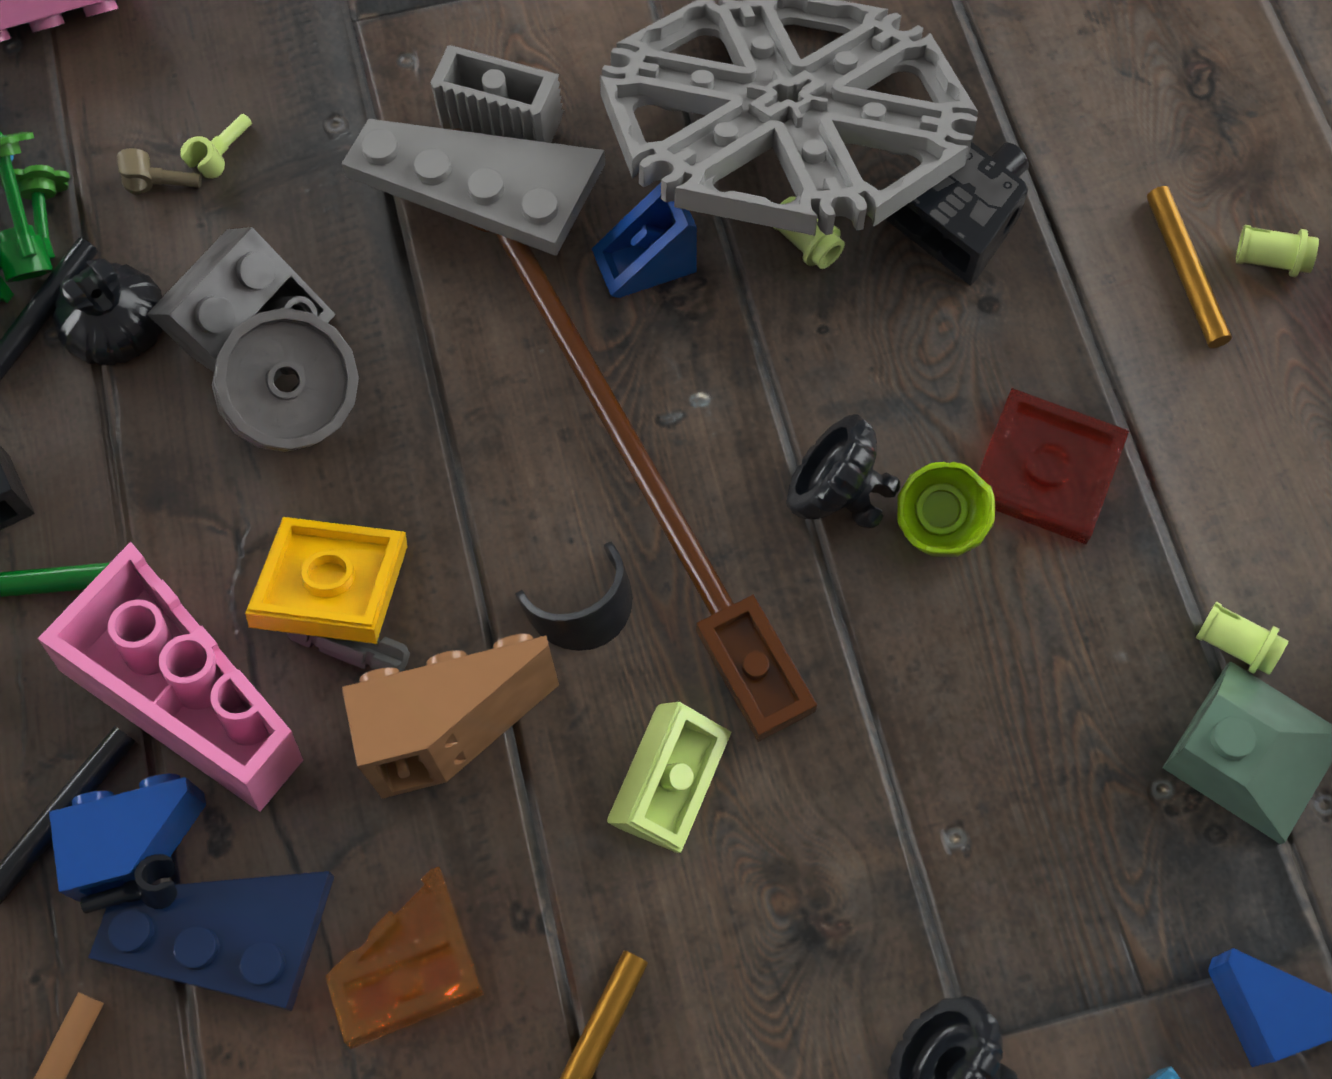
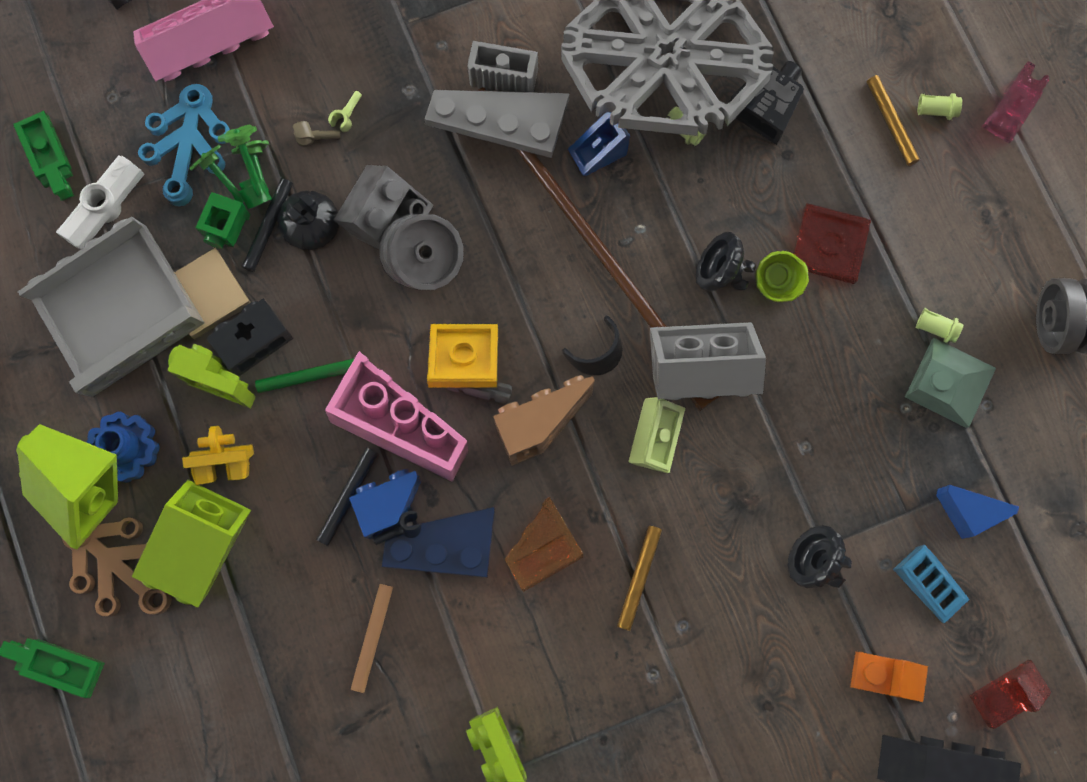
camera: 10 degrees left, 10 degrees up
(778, 644) = (707, 361): none -> light grey slope

